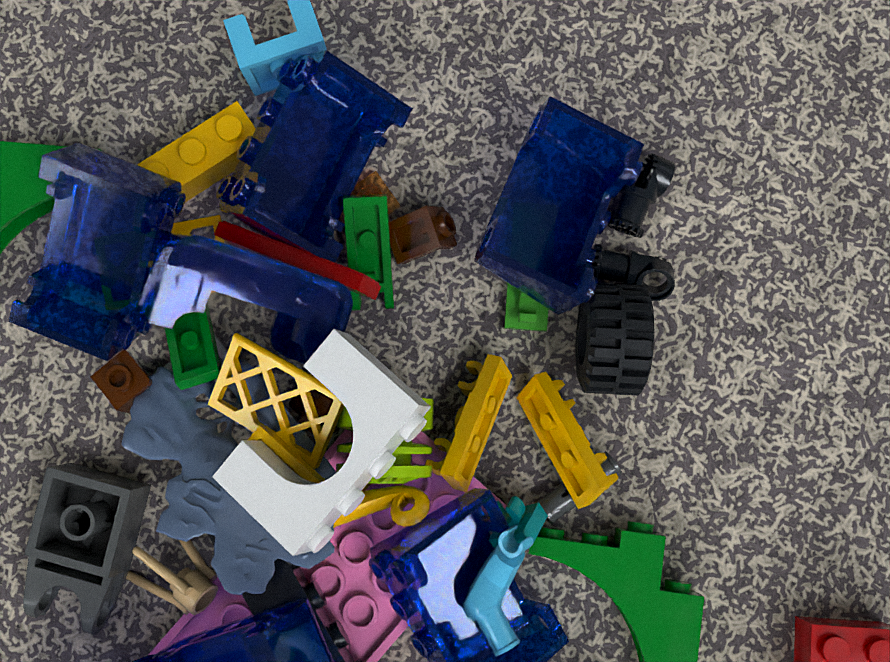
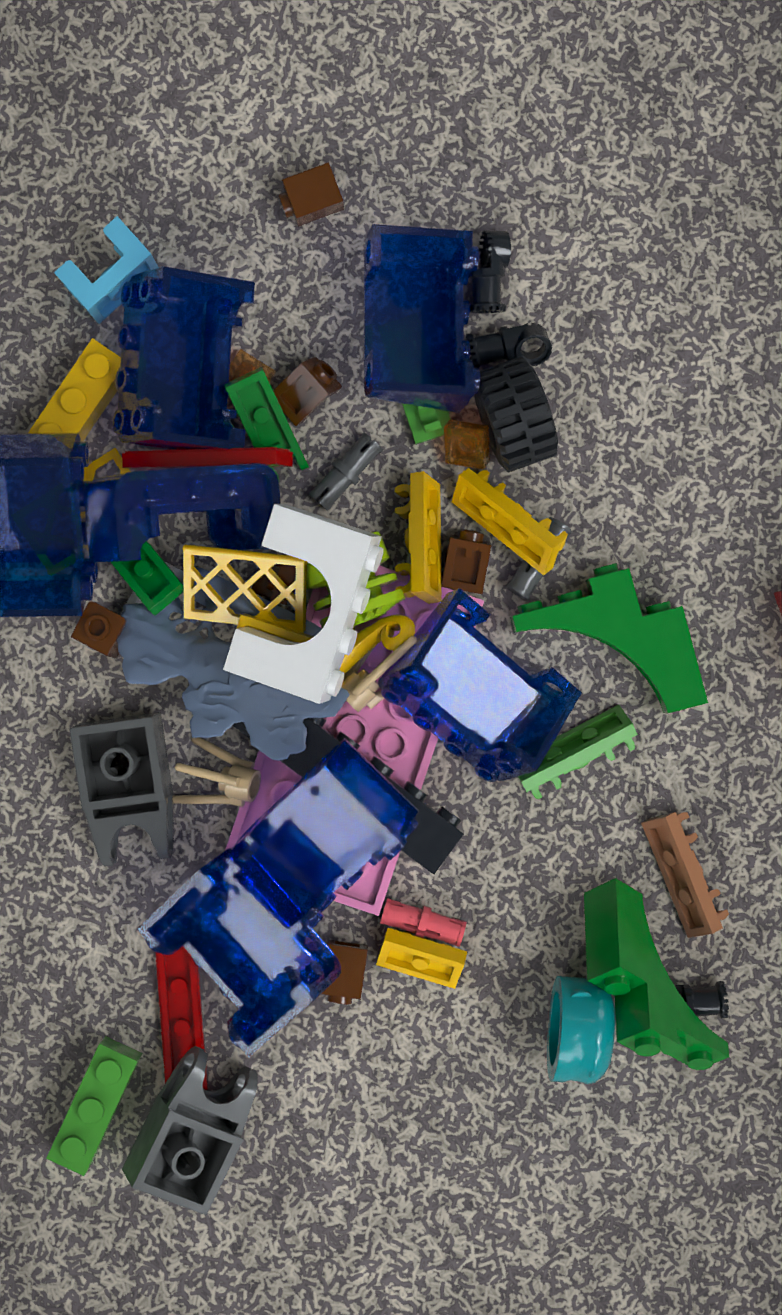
camera: 20 degrees left, 5 degrees up
(353, 544) = (363, 685): none -> tan plant
(427, 326) = (345, 471): none -> dark grey pin
(490, 587) = (495, 672): medium azure arm -> none
(502, 55) = (311, 195): none -> reddish brown brick
(507, 462) = (466, 561): none -> reddish brown bracket
(528, 518) = (503, 610): teal tile -> none
(553, 348) = (466, 444): none -> clear orange plate

